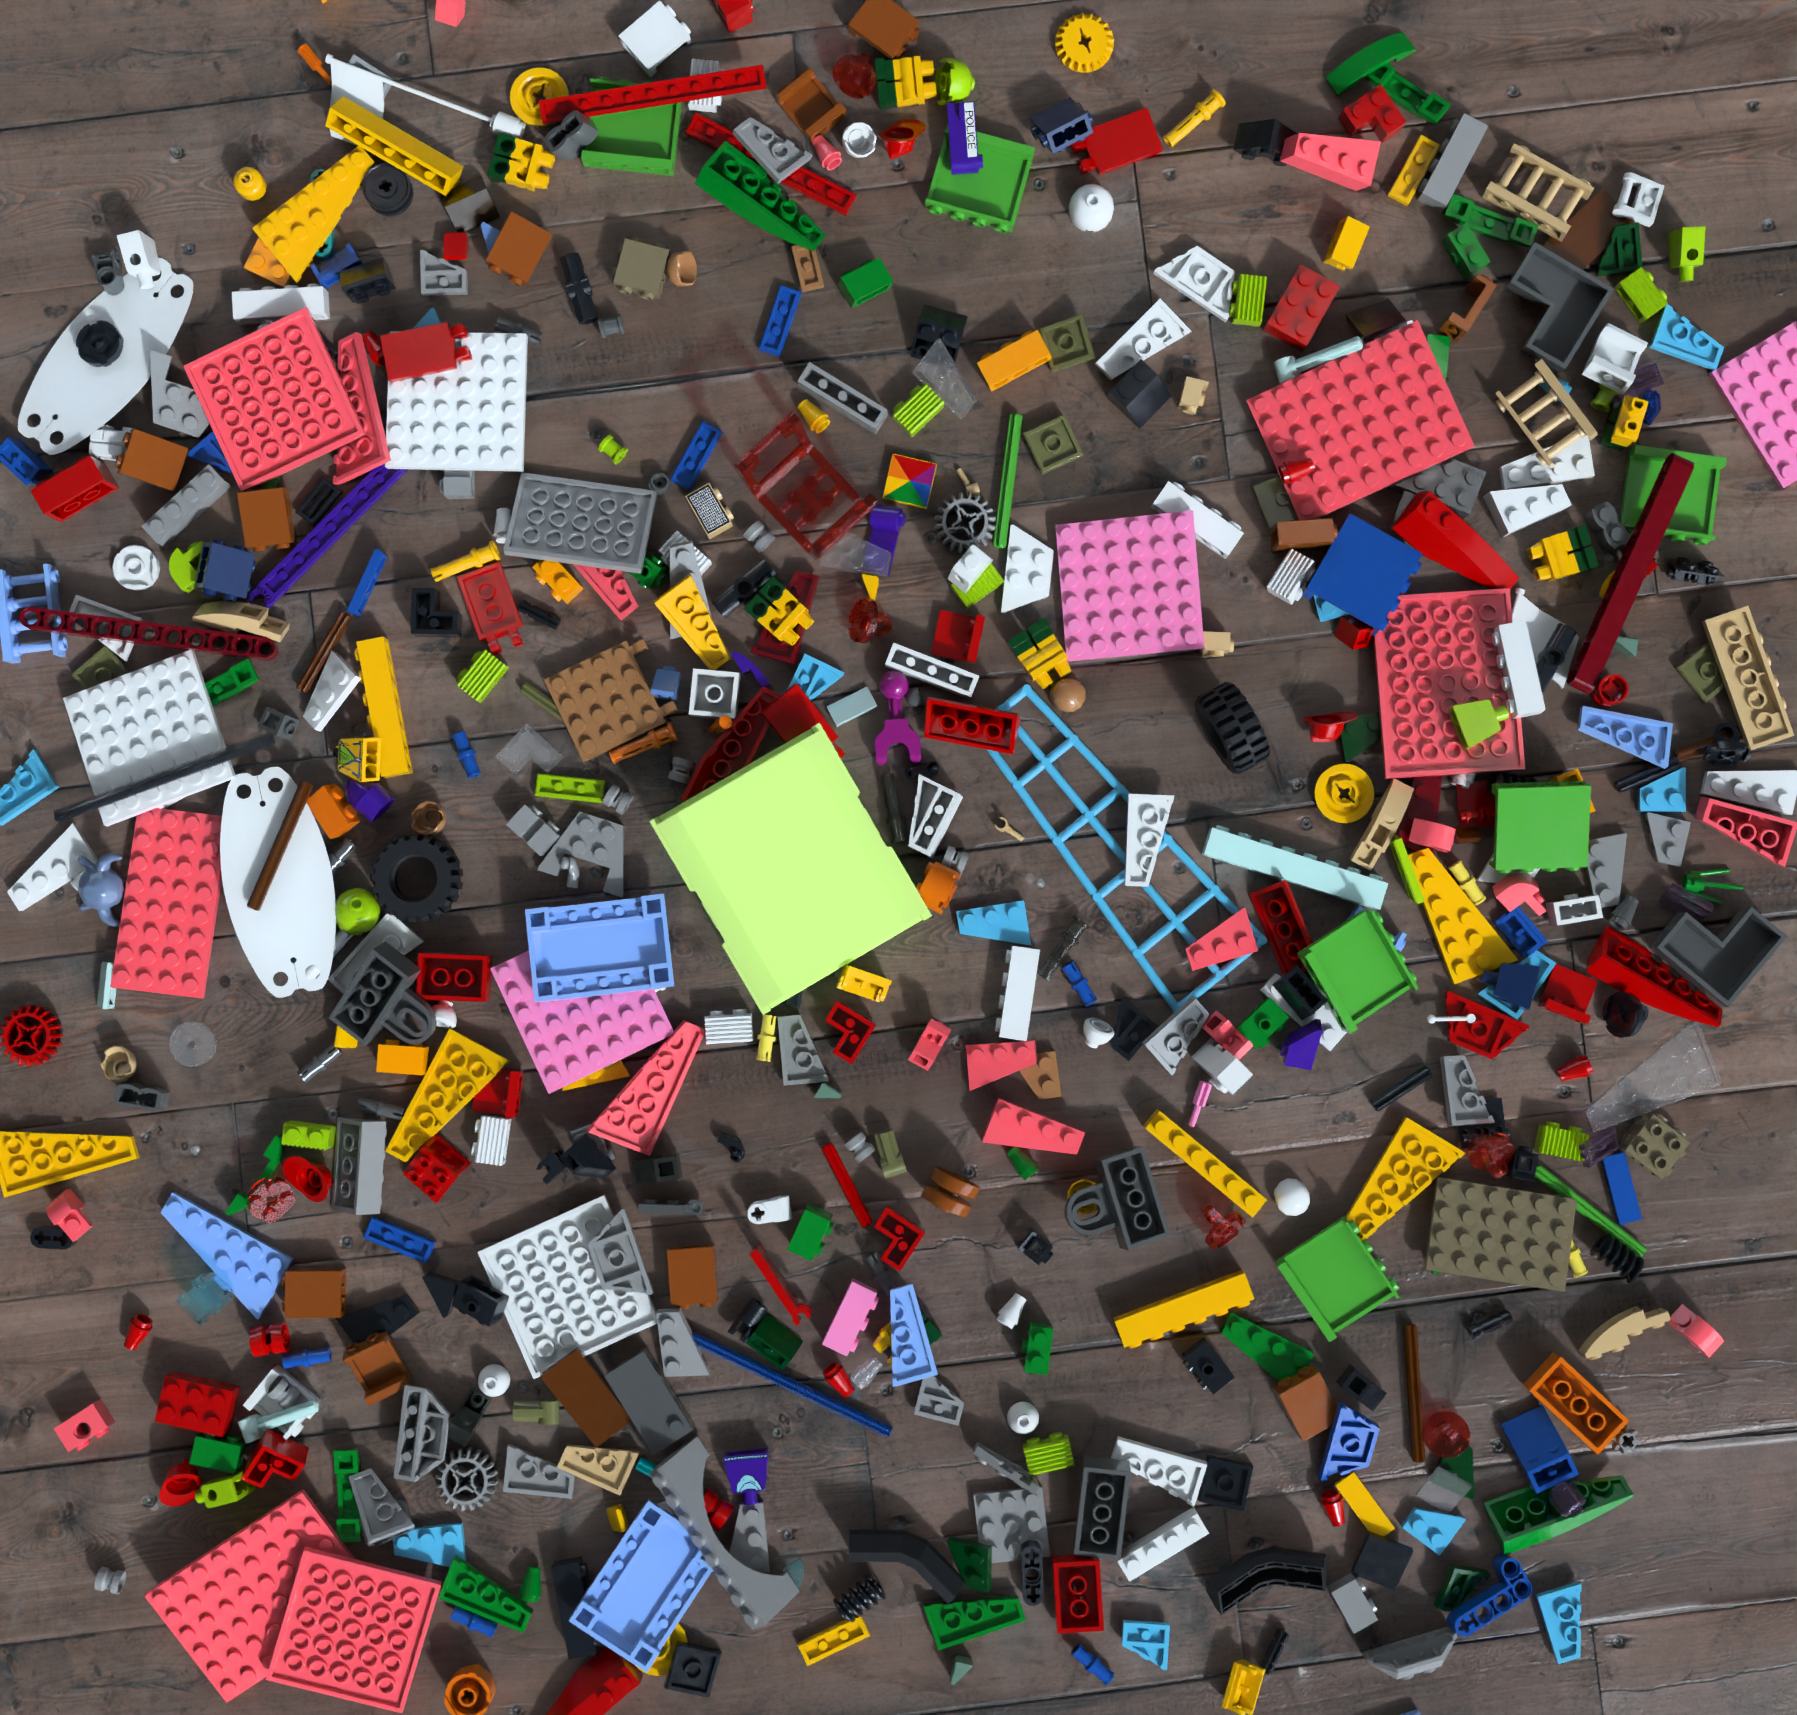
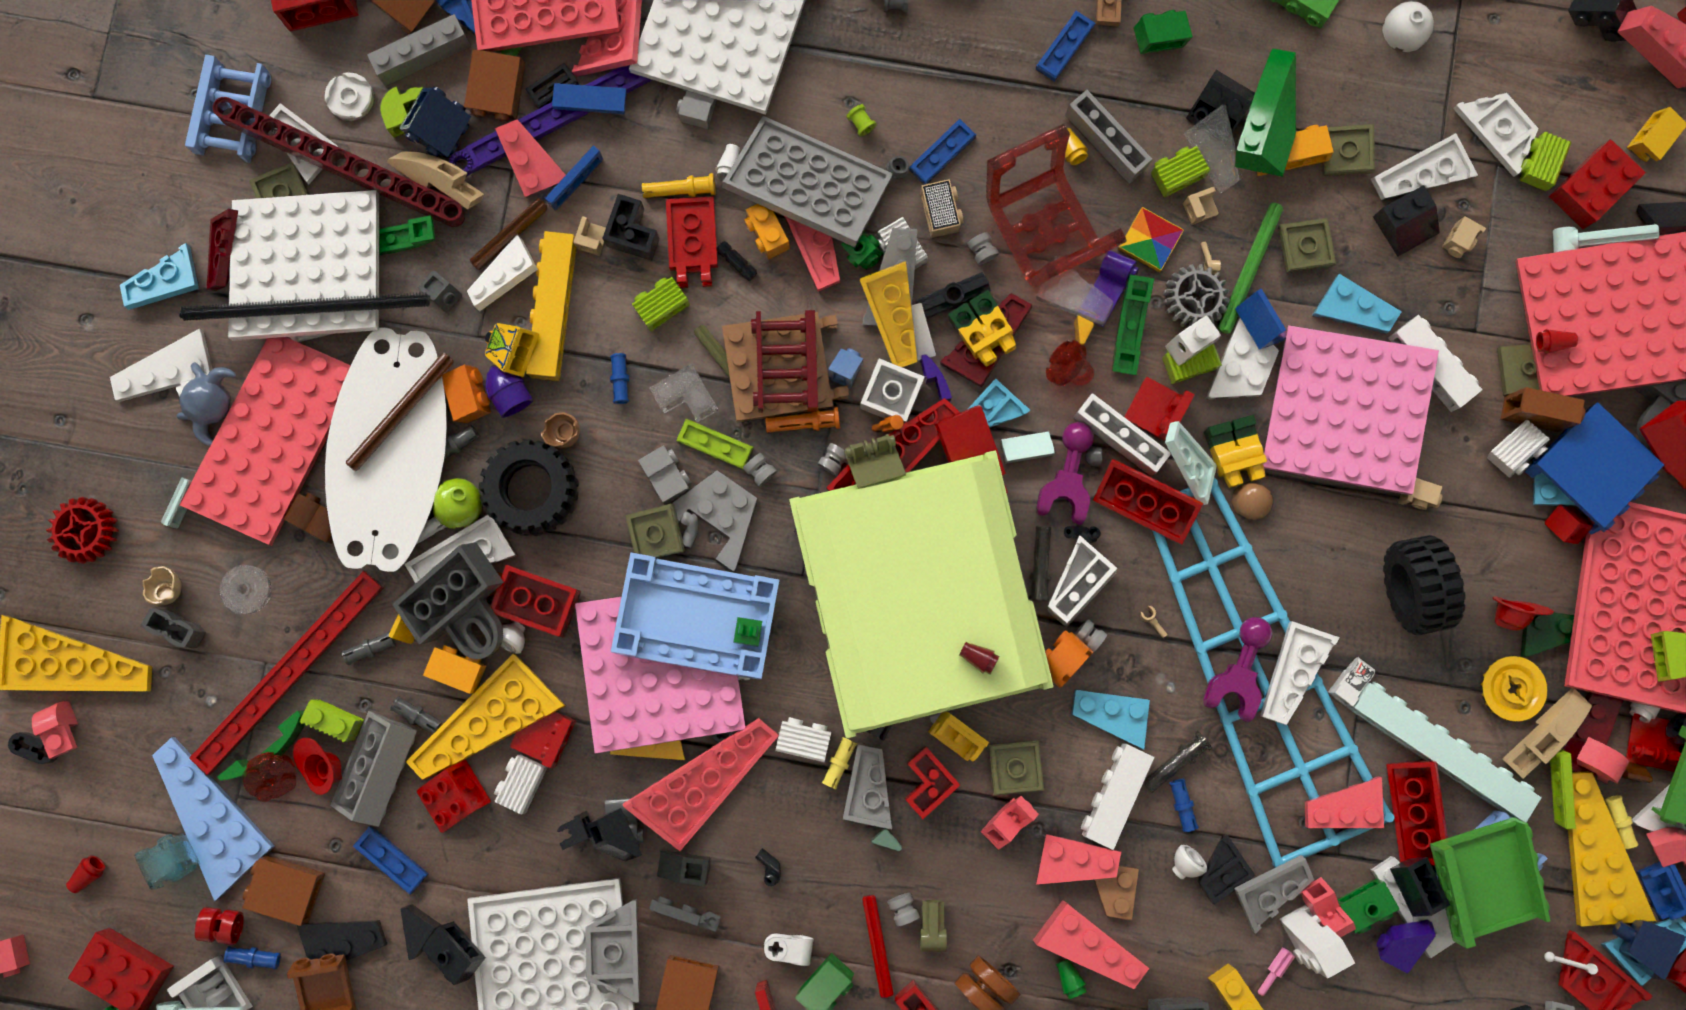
camera: 10 degrees right, 5 degrees down
(67, 745) = (220, 247): none -> dark red wing
(230, 962) = (310, 516): none -> reddish brown brick
(254, 1105) = (286, 673): none -> red plate
(323, 581) = (529, 161): none -> coral wing
(357, 505) = (589, 98): none -> blue tile
(398, 632) = (589, 237): none -> tan panel
(541, 883) = (655, 531): none -> olive tile
(625, 679) = (806, 349): none -> dark red fence
(649, 948) = (747, 631): none -> green tile
(716, 764) = (874, 461): none -> olive hinge
(726, 632) = (922, 335): none -> white sticker
(856, 910) = (979, 657): none -> dark red cone
(914, 567) = (1131, 324): none -> green slope
(923, 995) = (1016, 767): none -> olive plate
(947, 436) = (1201, 206): none -> tan panel
(985, 336) = (1271, 118): none -> green wedge
(1000, 676) = (1192, 461): none -> light aqua wing
(1028, 529) = (1261, 320): none -> blue slope
(1099, 815) = (1239, 678): none -> magenta piece
(1113, 487) = (1357, 306): none -> medium azure wing
(1198, 830) = (1352, 682): none -> white leg

